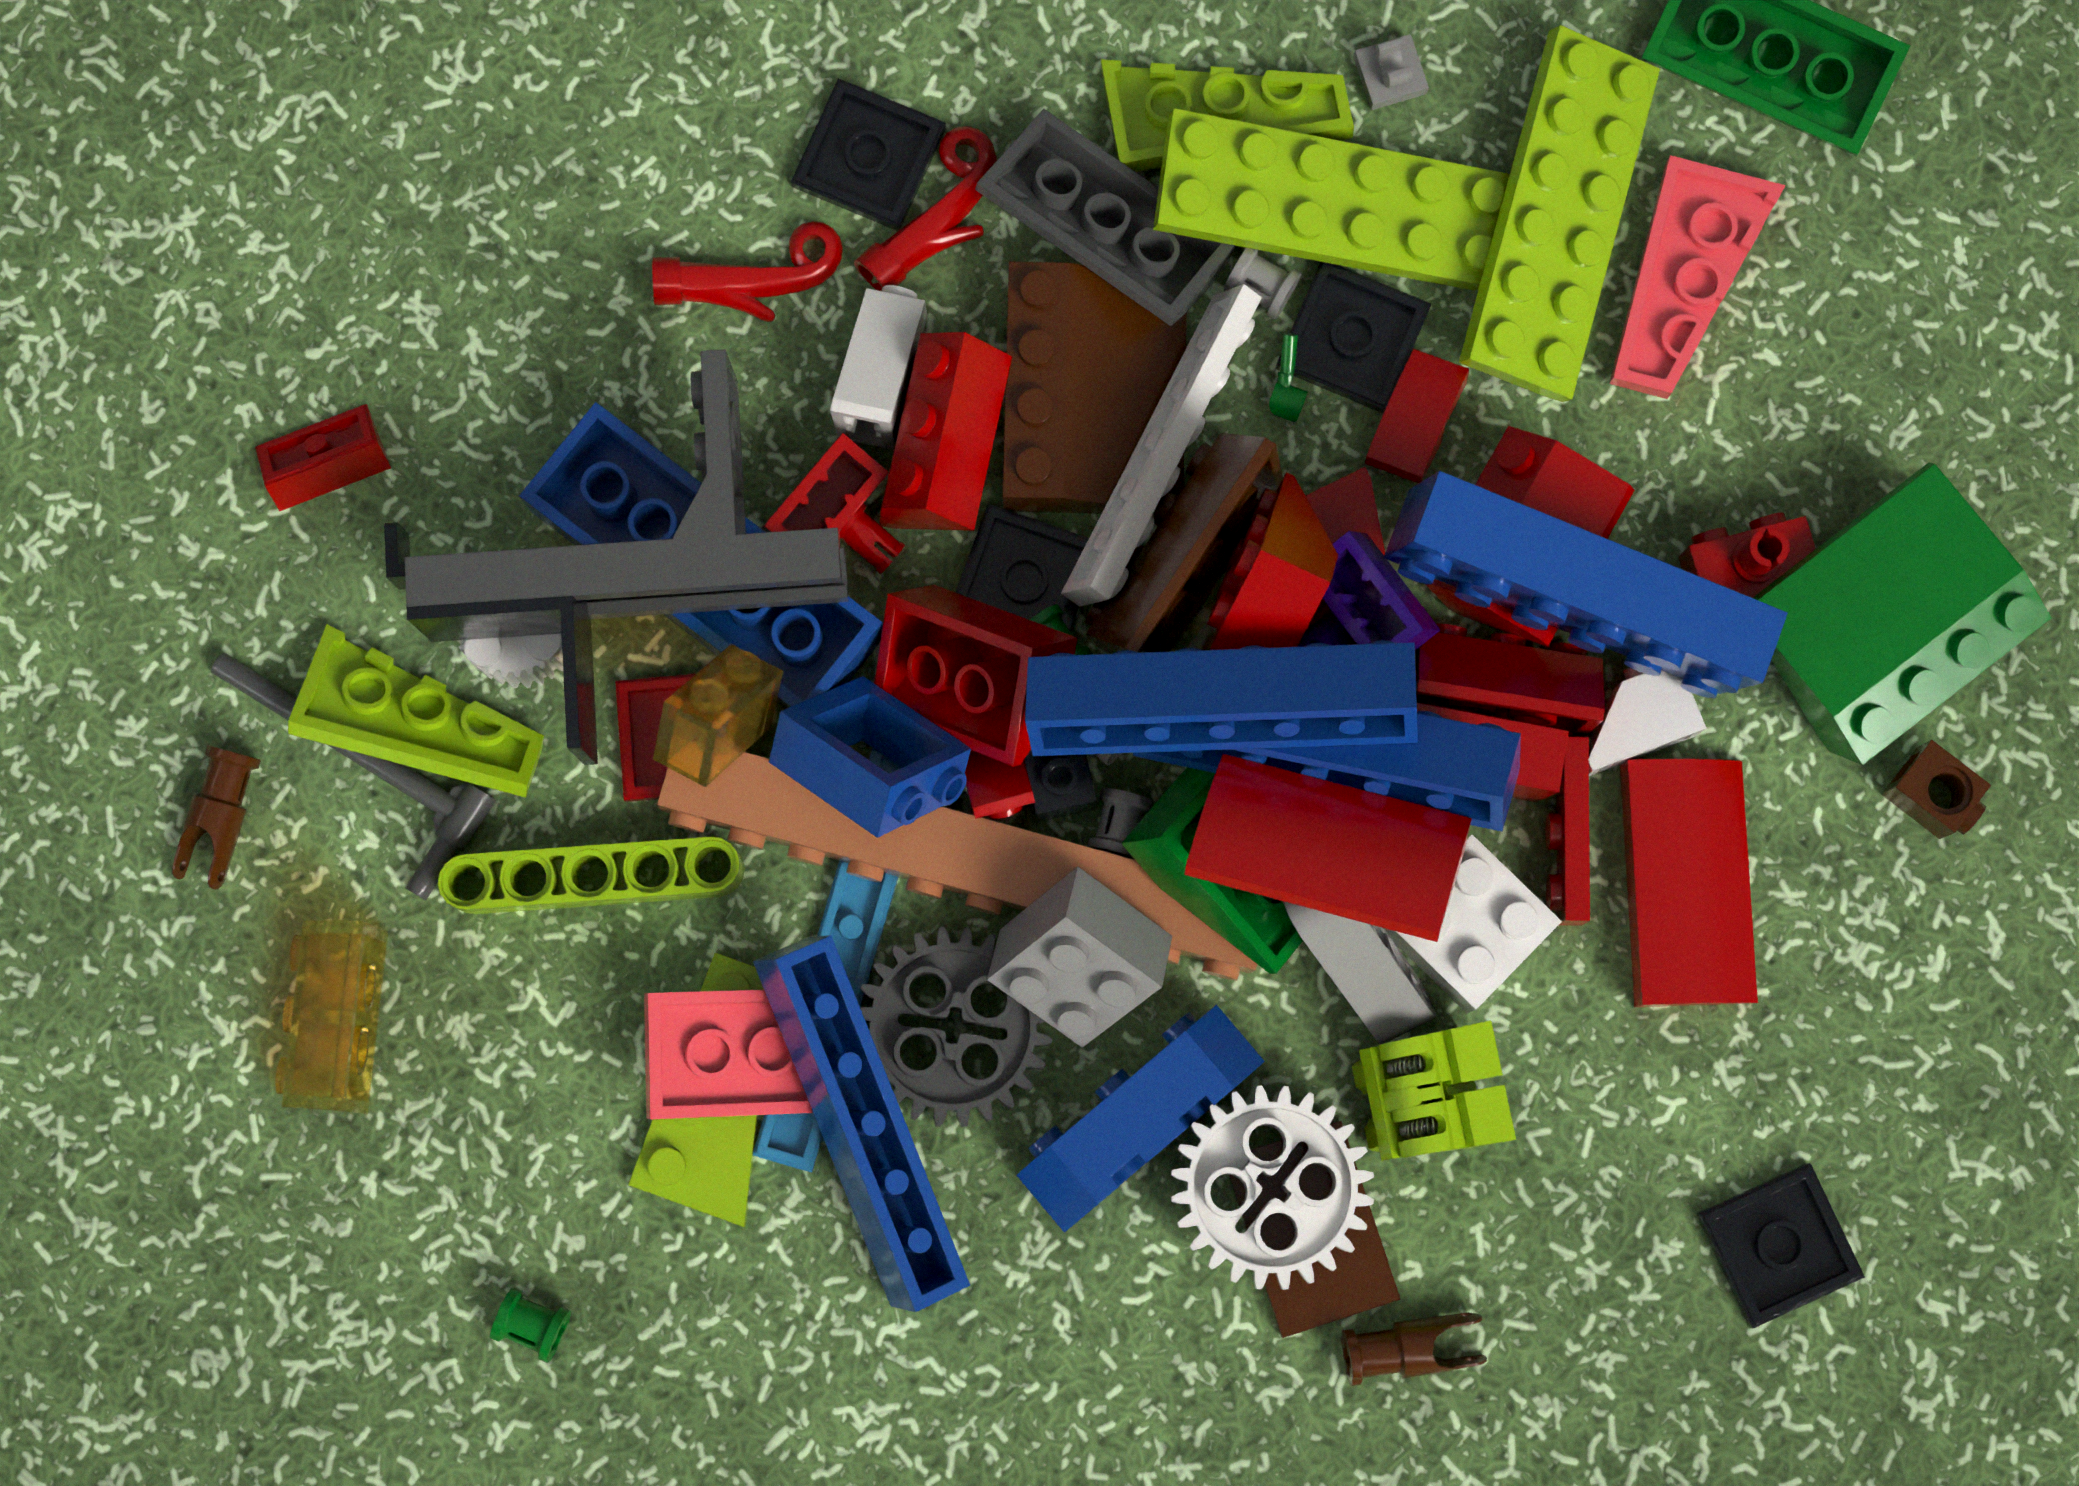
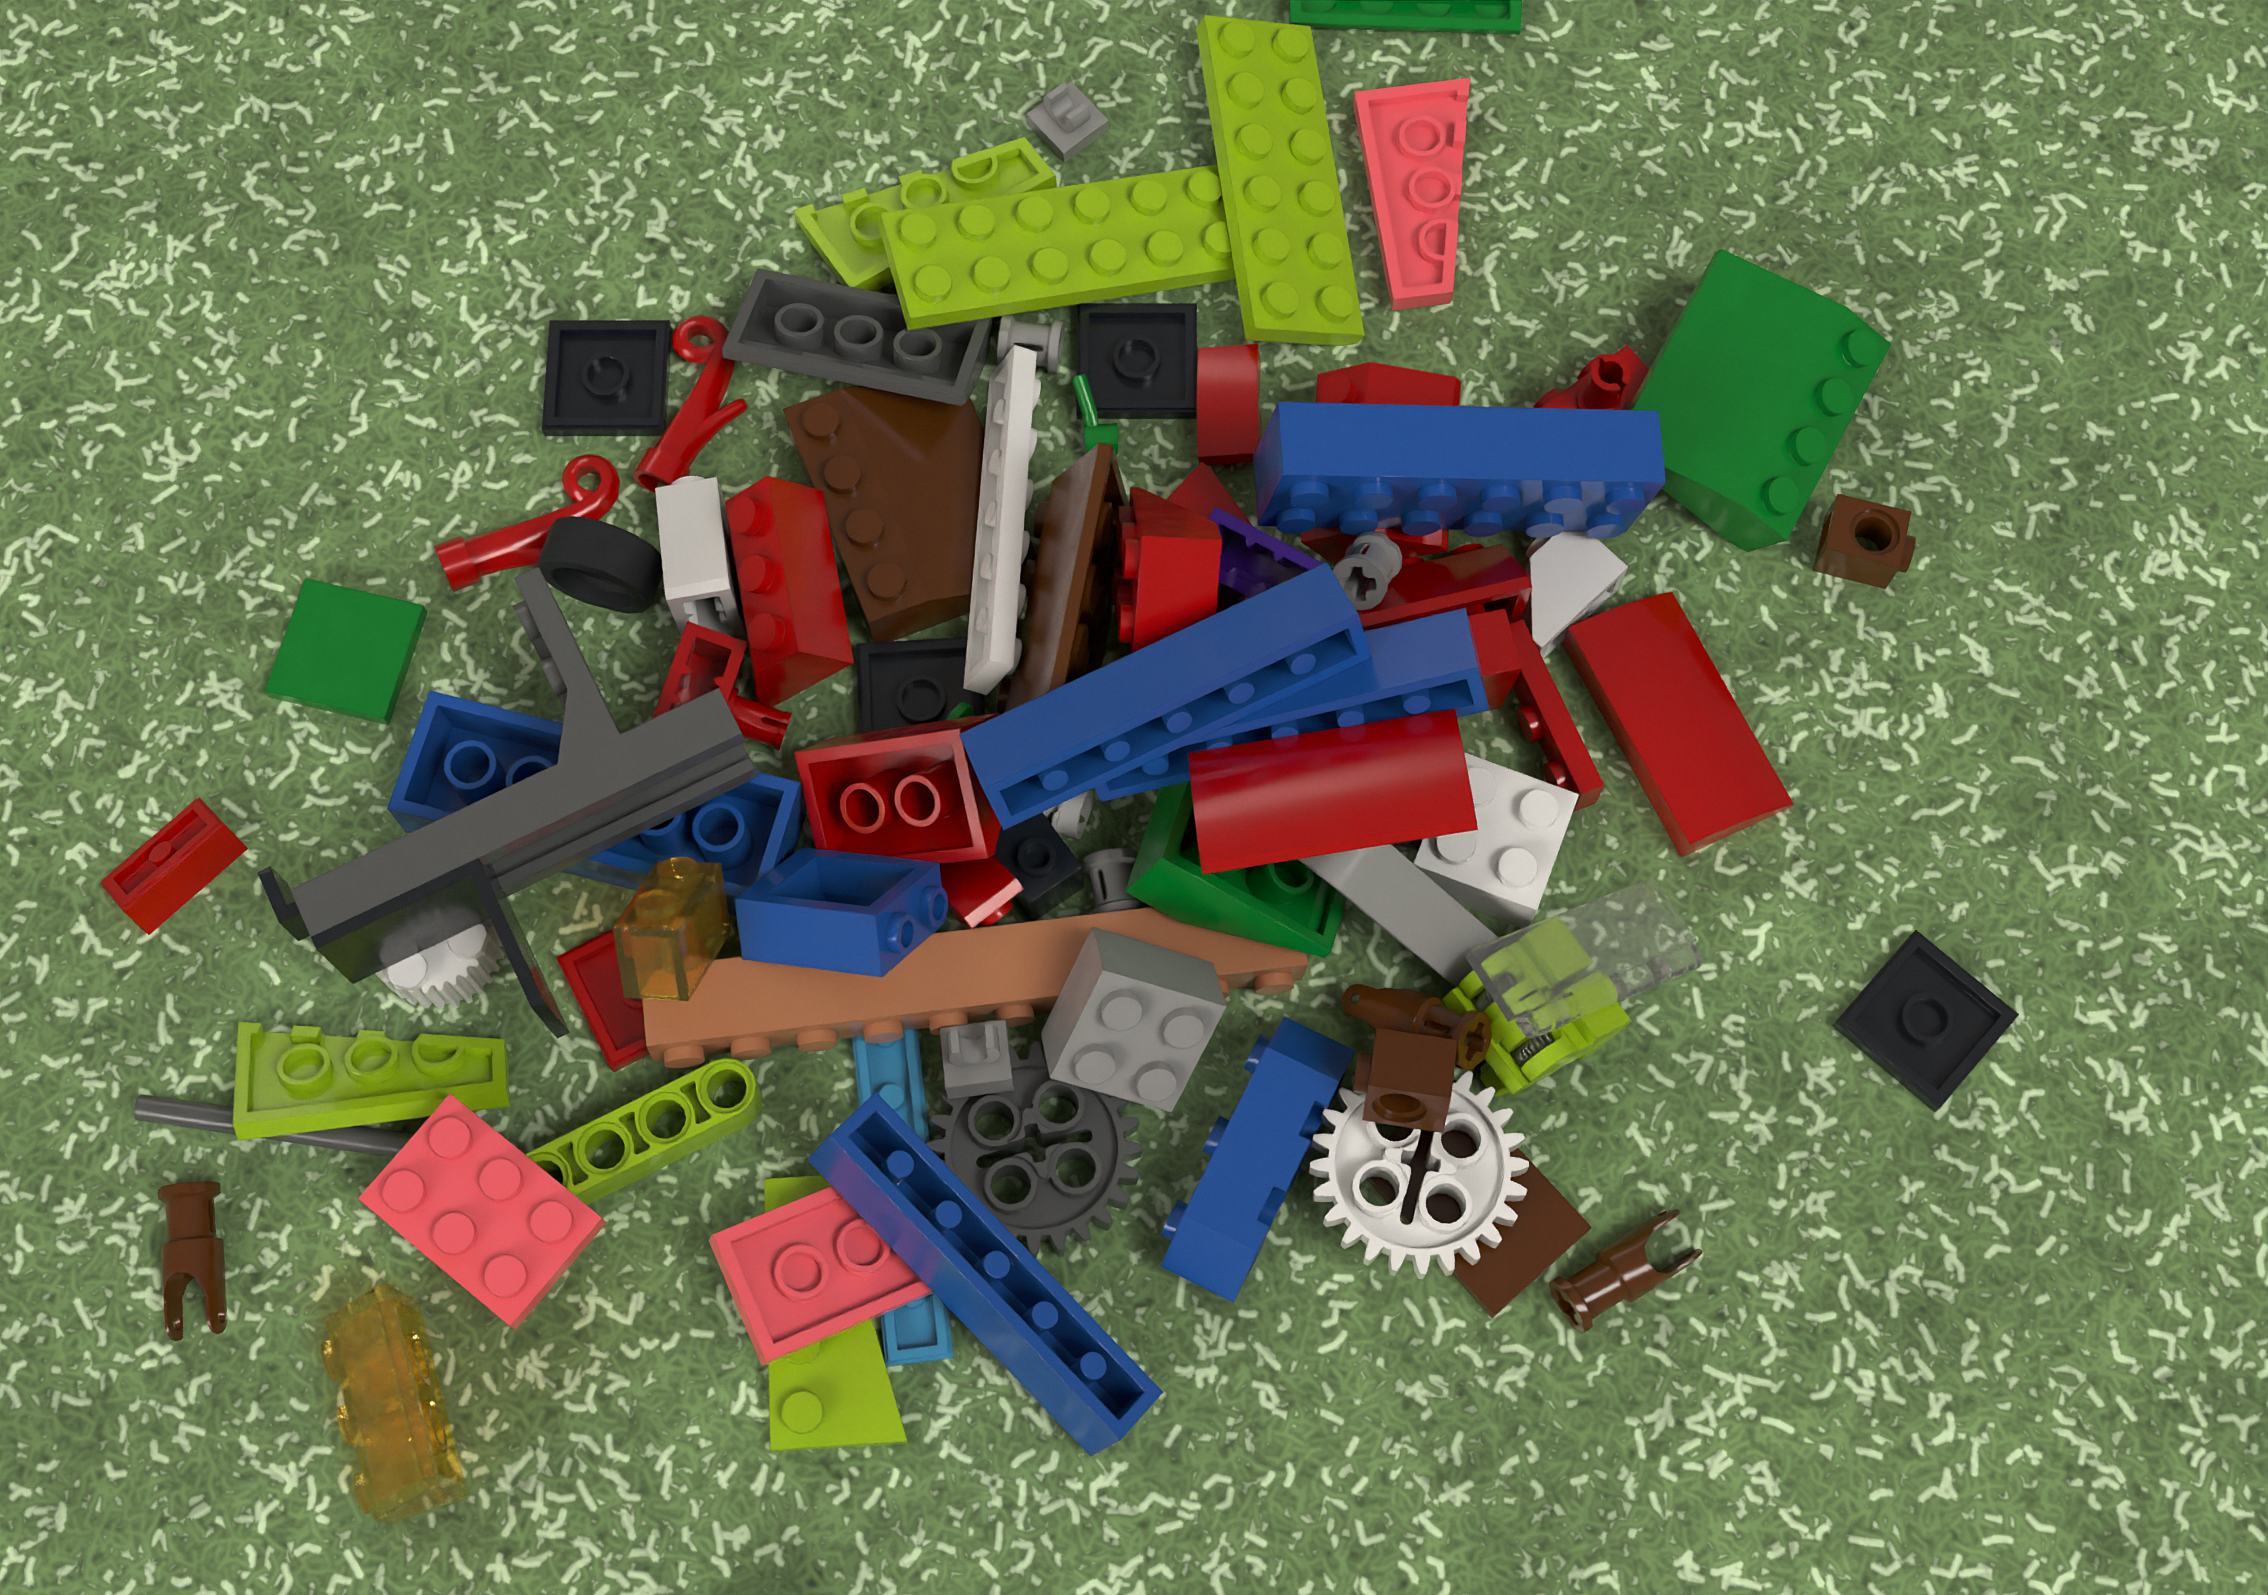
camera: 25 degrees left, 10 degrees down
(466, 886) = (482, 1211): none -> coral plate
(541, 322) = (346, 651): none -> green tile
(790, 341) = (601, 564): none -> black tyre
(934, 930) = (976, 1059): none -> light grey tile
(1290, 1114) = (1407, 1079): none -> reddish brown brick
(1329, 1064) = (1424, 1015): none -> reddish brown piece
(1471, 643) = (1372, 569): none -> light grey bush
(1501, 1070) = (1586, 958): none -> clear windscreen

